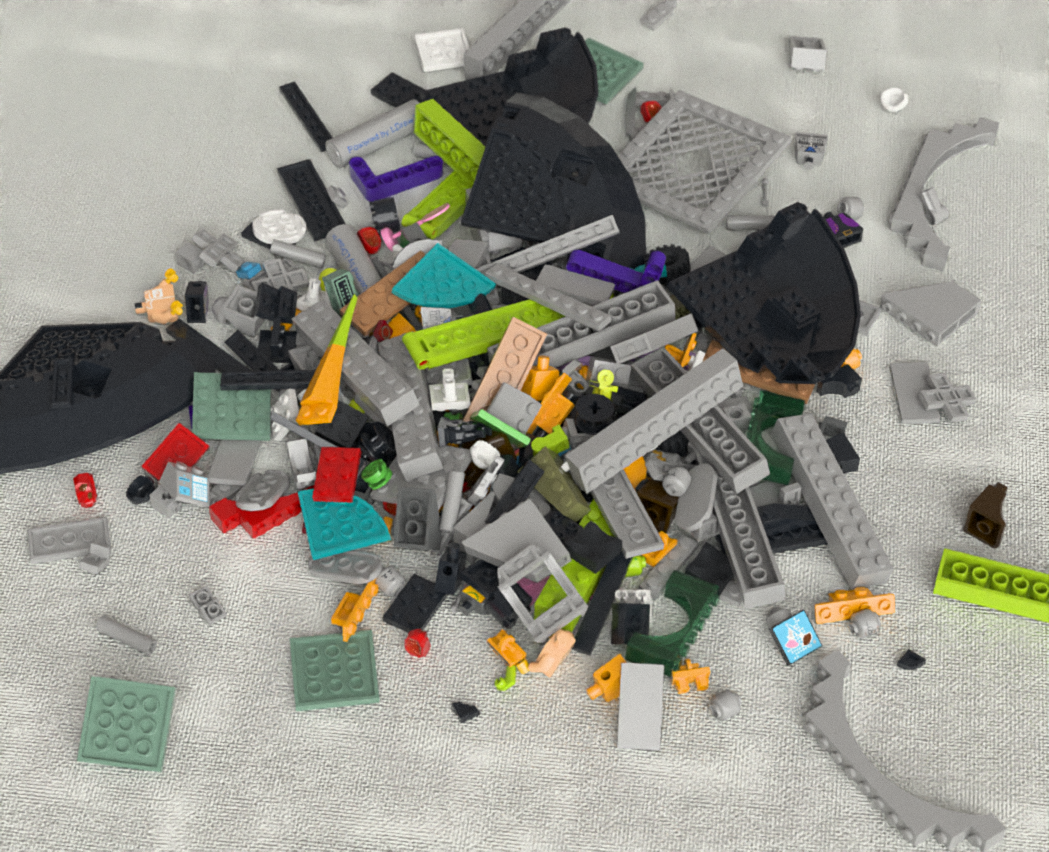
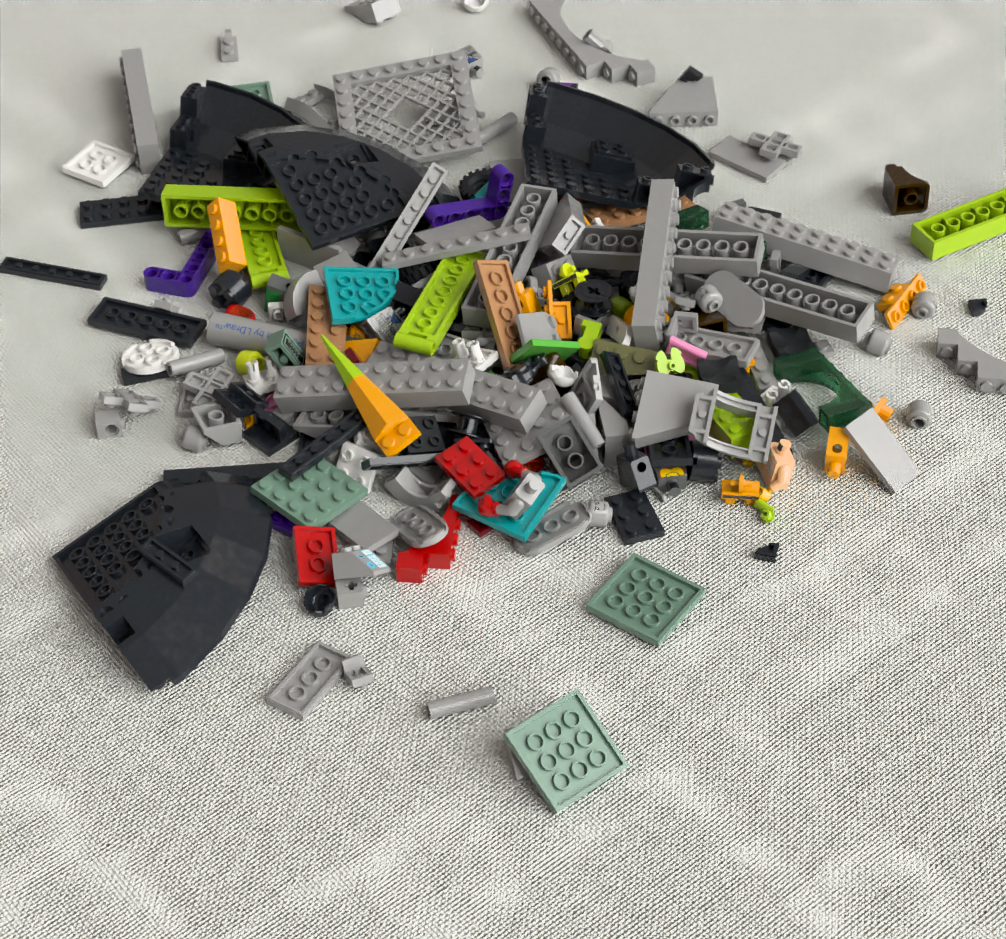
camera: 45 degrees left, 5 degrees down
(85, 490) = (272, 636): red rock -> none
(161, 302) = (133, 469): light nougat torso -> none
(196, 294) = (165, 446): black torso -> none
(207, 605) = (494, 637): light grey slope -> none
(248, 270) = (170, 400): dark azure plate -> none
(249, 353) = (262, 451): black tile -> none
(335, 521) = (519, 498): none -> light grey torso
(352, 609) = (603, 550): light orange bracket -> none
(372, 134) = (135, 246): light grey piece -> none
(376, 473) = (497, 445): bright green wheel -> none
(391, 239) = (275, 262): bright pink piece -> none
(417, 643) = (677, 535): red rock -> none
(423, 170) = (226, 235): none -> light orange slope
(573, 511) = (675, 363): none -> piece
(595, 509) = (689, 352): none -> bright pink tile
(616, 482) = (681, 322): none -> light grey bracket
(649, 110) = (324, 107): red rock -> none
(795, 637) = (901, 342): tile -> none
(959, 285) = (691, 74): none -> black tile

